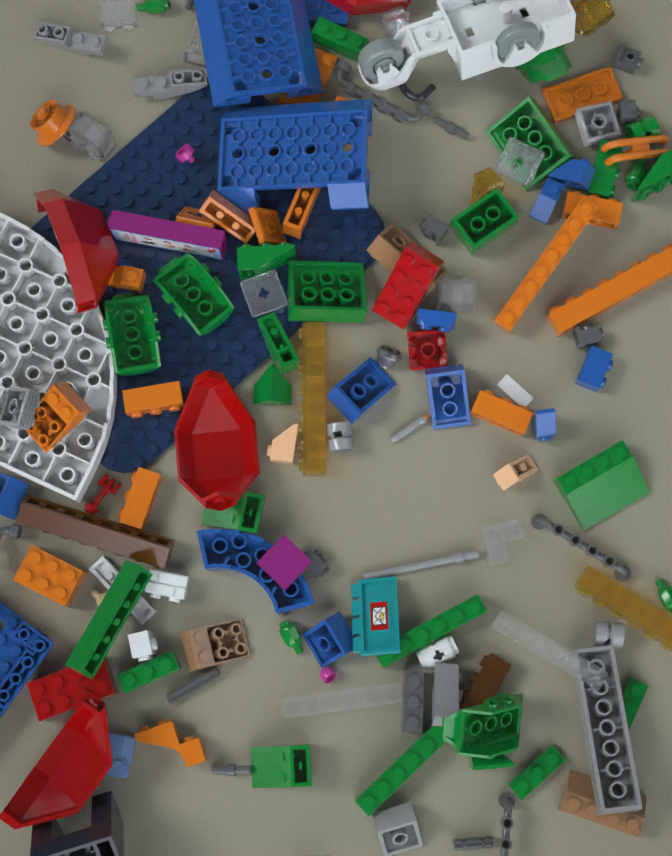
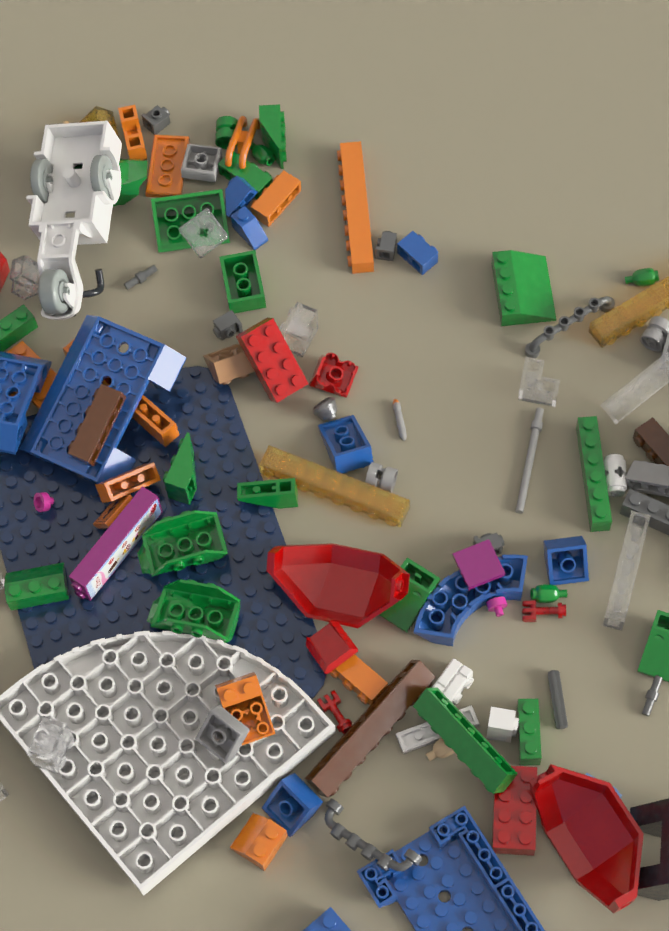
camera: 65 degrees left, 15 degrees down
(50, 576) = (395, 788): orange brick -> none
(84, 243) = (96, 608): red panel -> none
(106, 185) = (36, 586): none -> green slope
(128, 279) = (136, 602): orange slope -> none
(151, 465) = (331, 646): none -> red slope
(153, 399) = (267, 623): orange brick -> none
(167, 735) = (595, 739): orange arch -> none
(214, 644) = (527, 665): medium nougat slope -> none
(251, 289) = (223, 477): clear brick -> none
(258, 595) = (497, 604): none -> dark pink tile
(263, 162) = (97, 424): none -> reddish brown brick
(267, 226) = (153, 455): orange tile -> none
(272, 388) = (306, 519): green slope -> none
(280, 654) = (533, 610): none -> red hinge
(284, 446) = (367, 528): light nougat slope -> none
(326, 291) = (240, 433): green slope -> none
(328, 674) = (596, 576): dark pink hinge -> none
(376, 616) = (563, 508): teal hinge -> none
(382, 104) = (58, 341): dark grey bar -> none
(438, 319) = (311, 354): blue slope -> none
(448, 396) = (385, 374): blue slope -> none
(484, 183) = (208, 270): clear yellow slope -> none
(501, 412) = (421, 339): orange brick -> none
(515, 391) = (406, 323): white sticker -> none
(515, 472) = (480, 350): light nougat slope -> none
(544, 424) = (449, 308): slope -> none
(545, 264) = (308, 249): orange brick -> none
(590, 52) = (132, 132): none -> orange arch
(627, 112) = (204, 133): dark grey brick -> none

